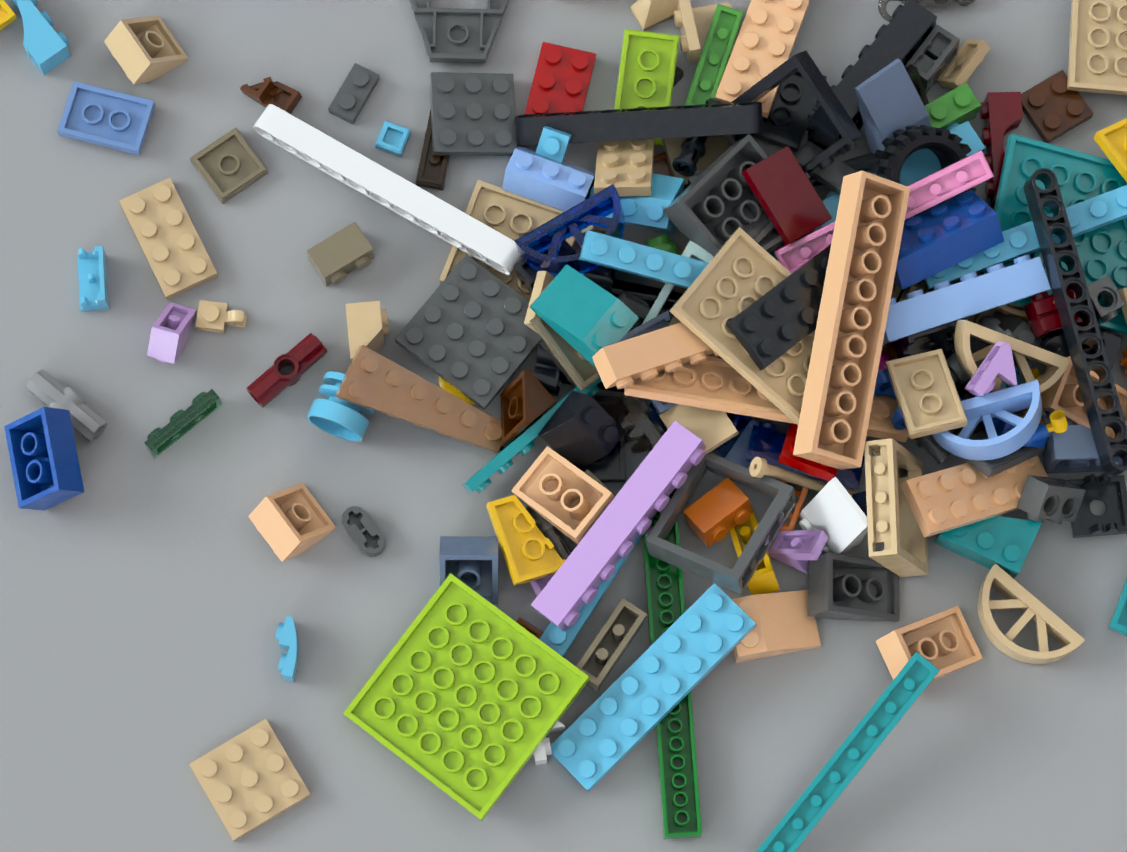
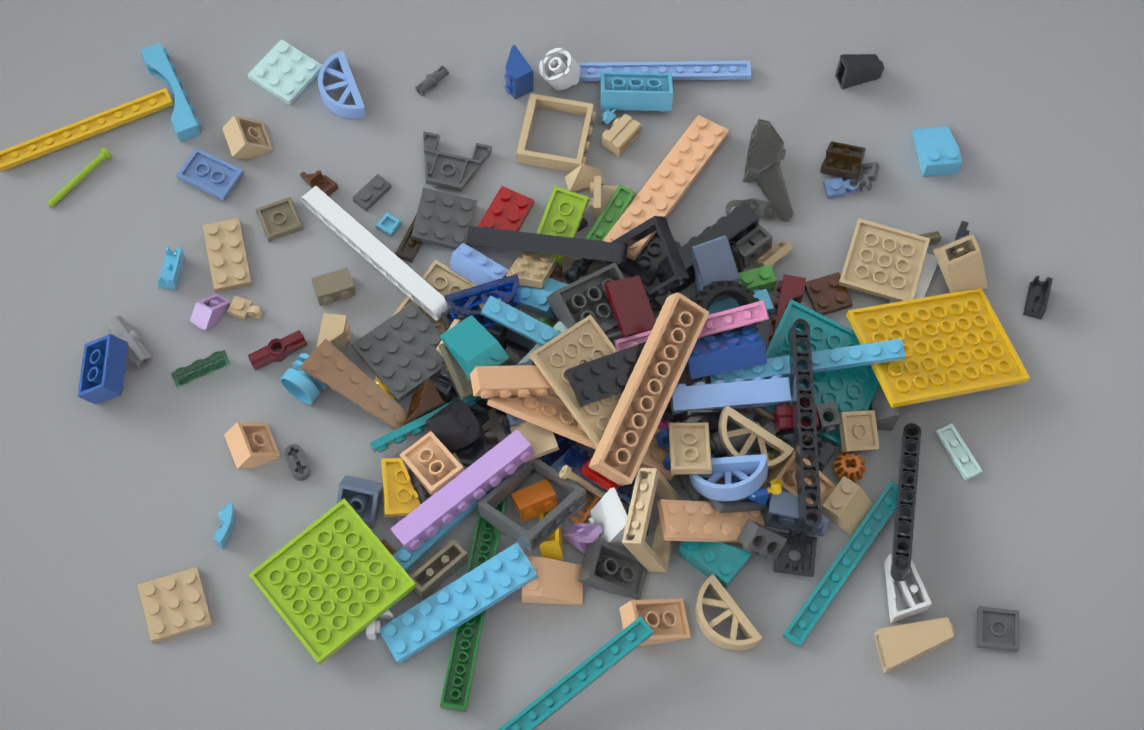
camera: 15 degrees right, 10 degrees down
(553, 144) = (489, 246): medium azure plate -> none
(996, 364) = (742, 438): lavender slope -> none

